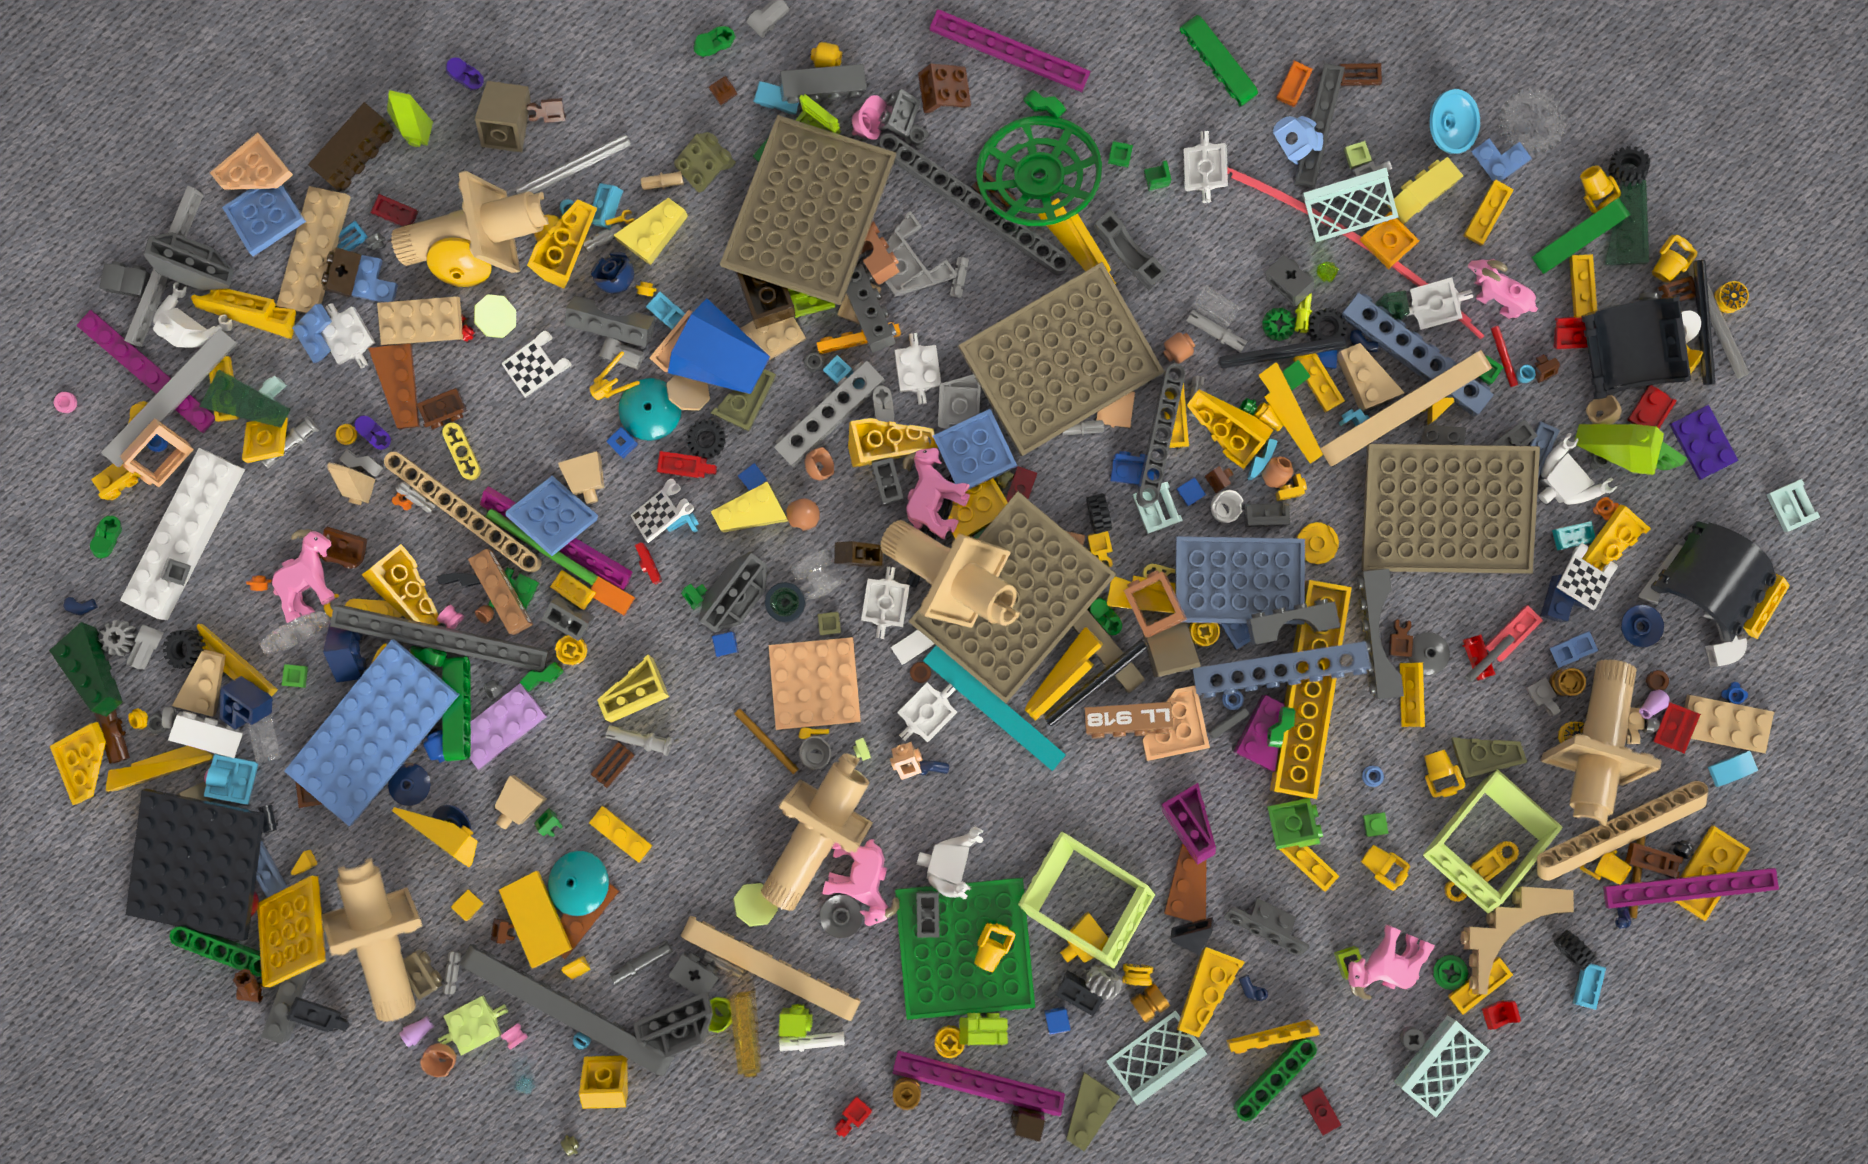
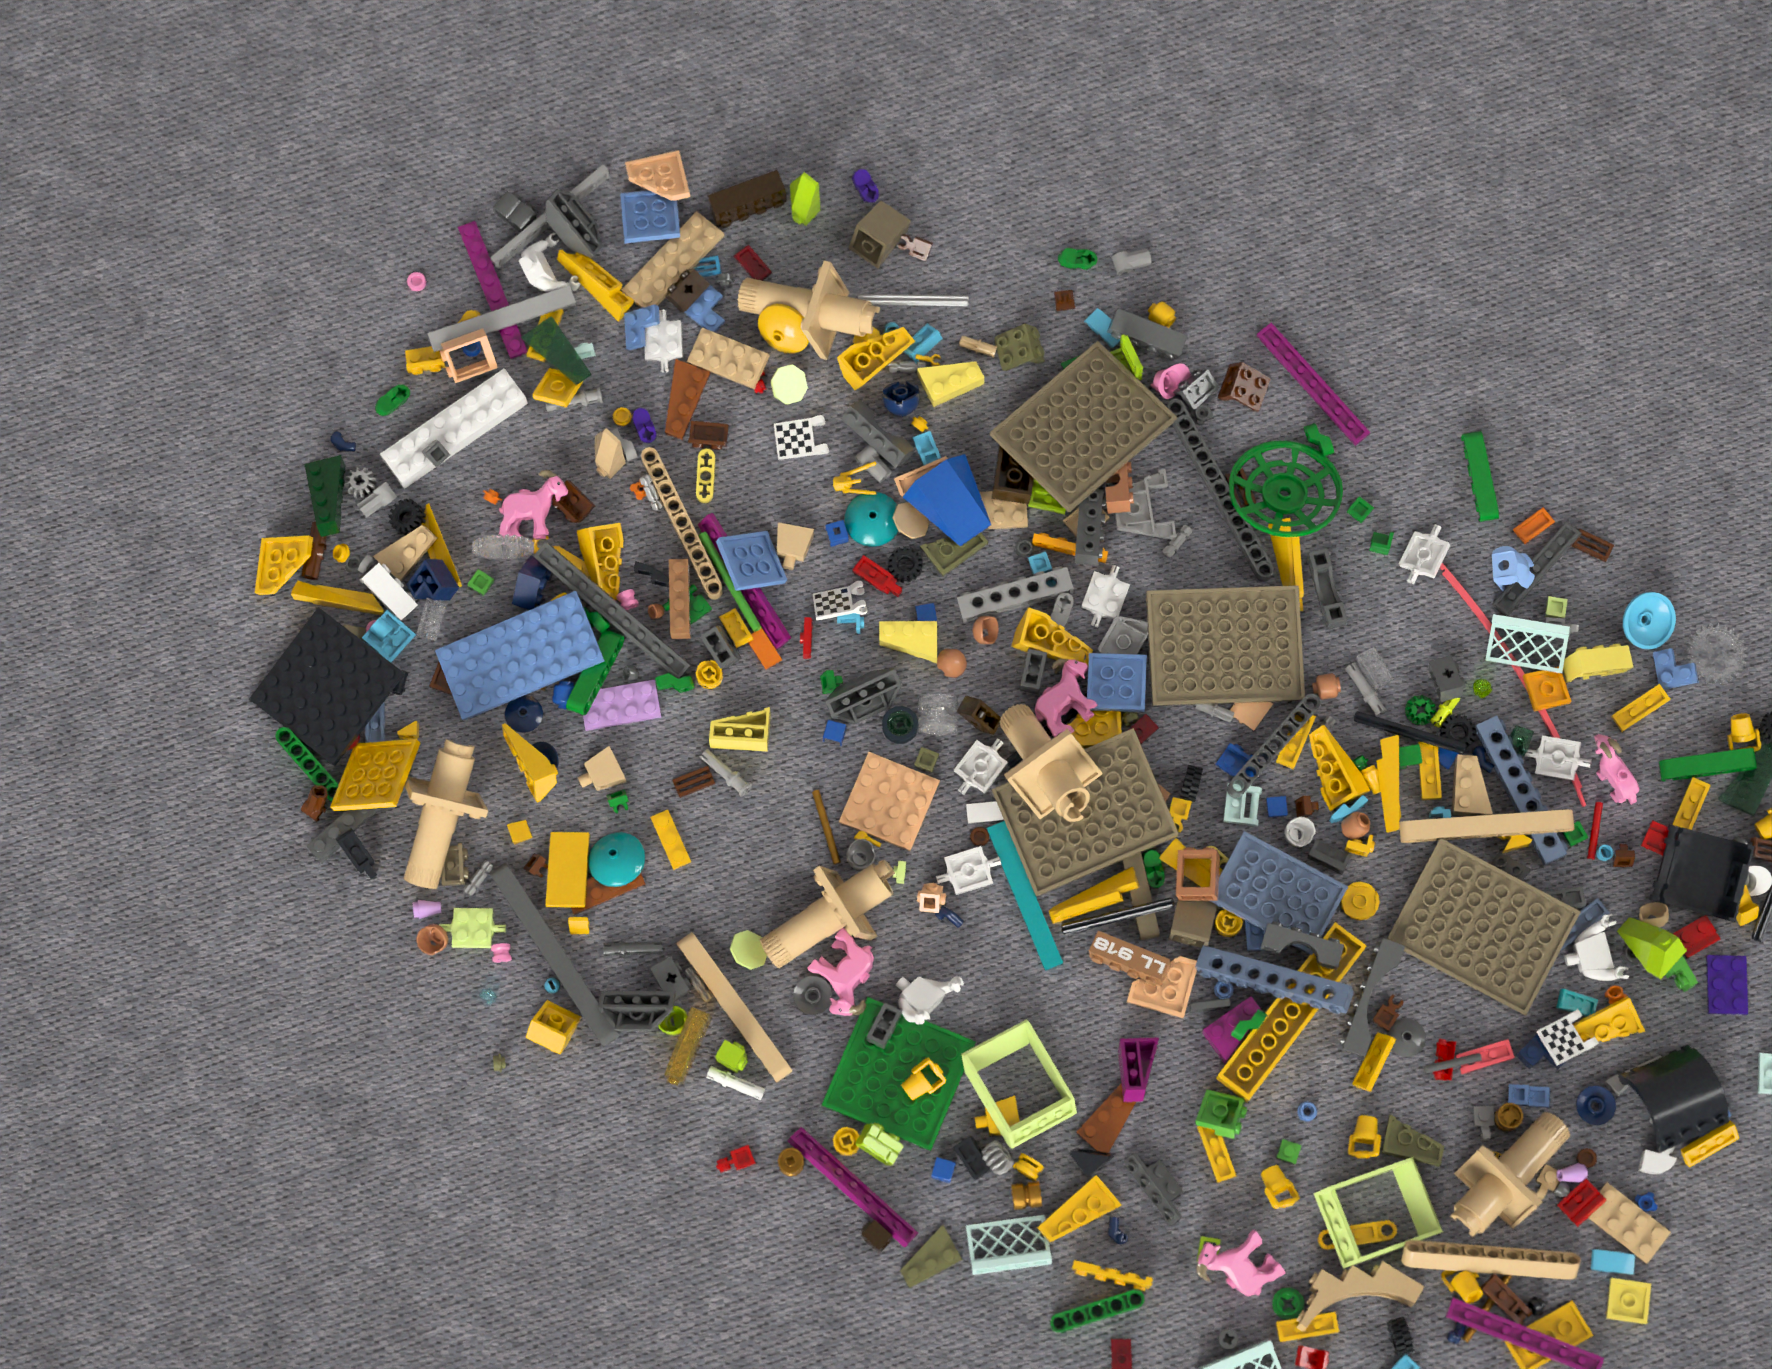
camera: 30 degrees right, 10 degrees down
(1766, 798) = (1628, 1301): none -> light yellow plate

